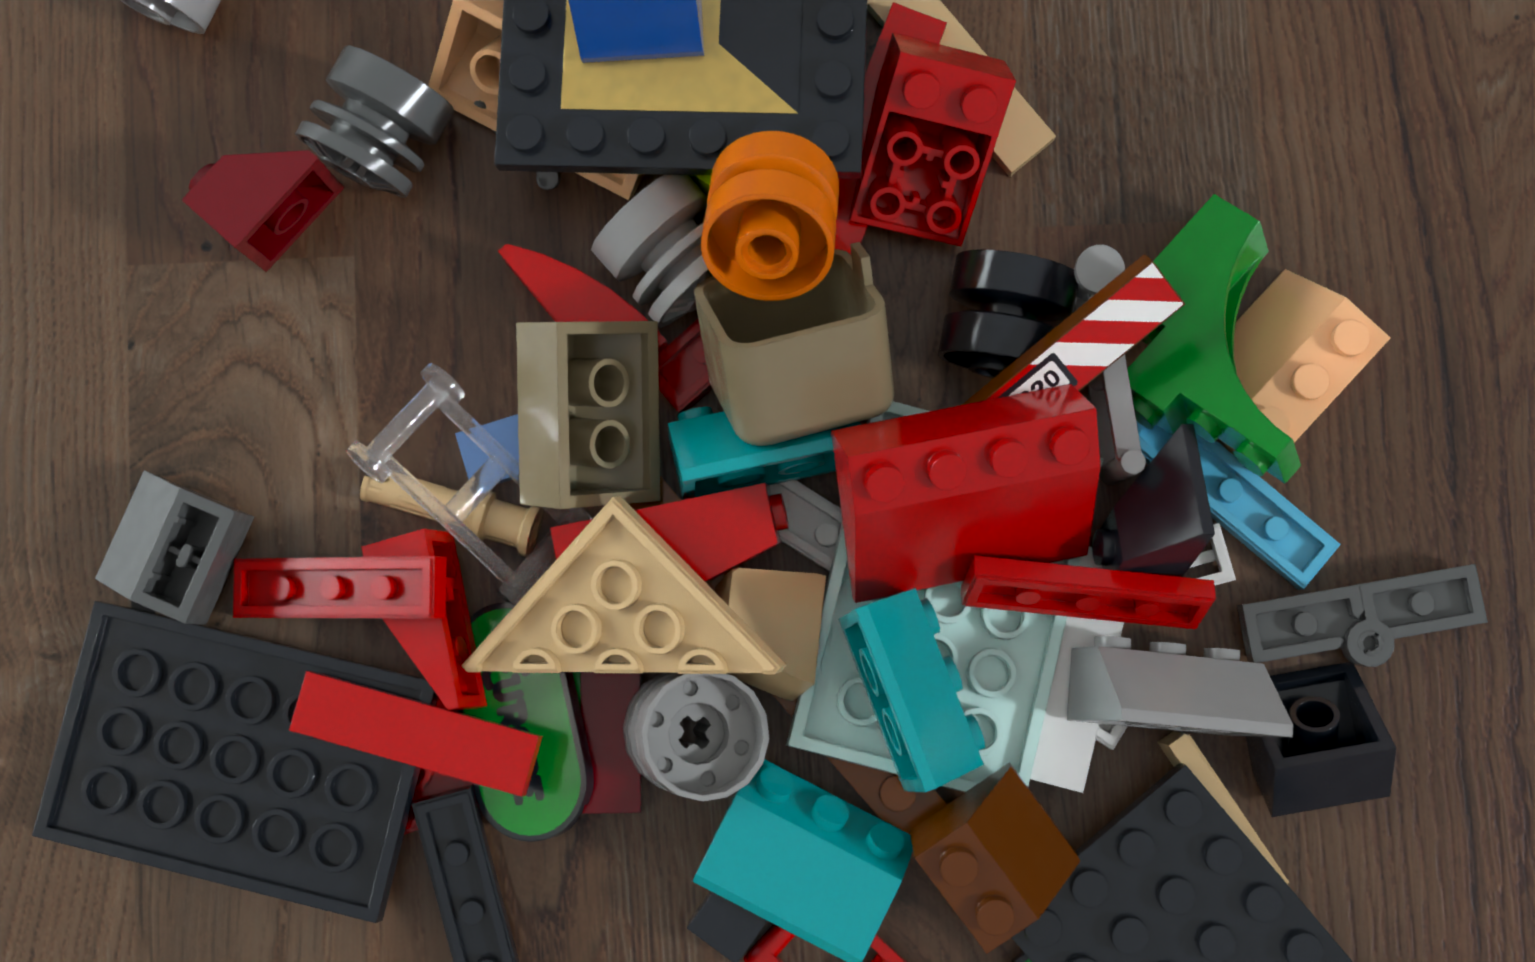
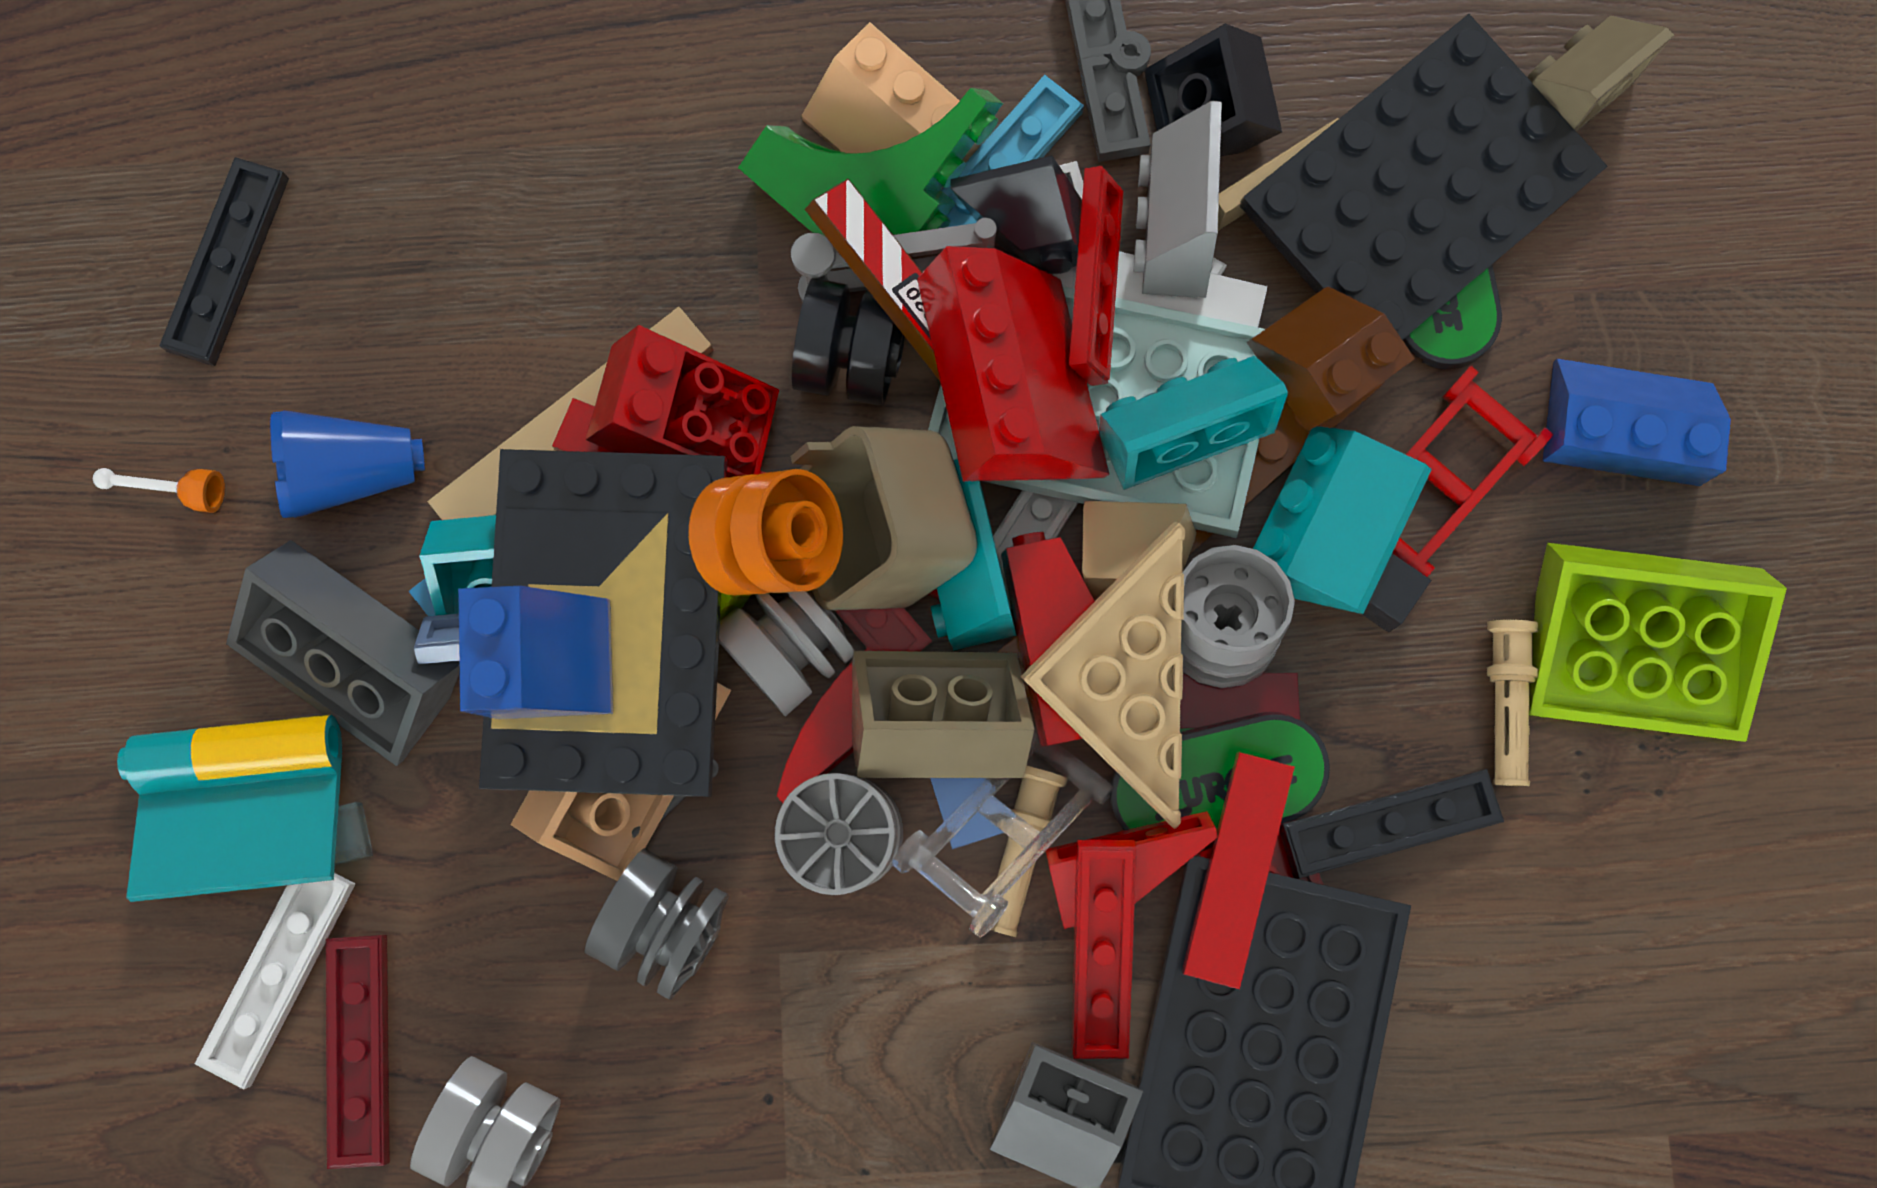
camera: 90 degrees left, 5 degrees down
(262, 200) = (731, 1035): dark red slope -> none
(462, 308) = (838, 833): none -> light grey wheel

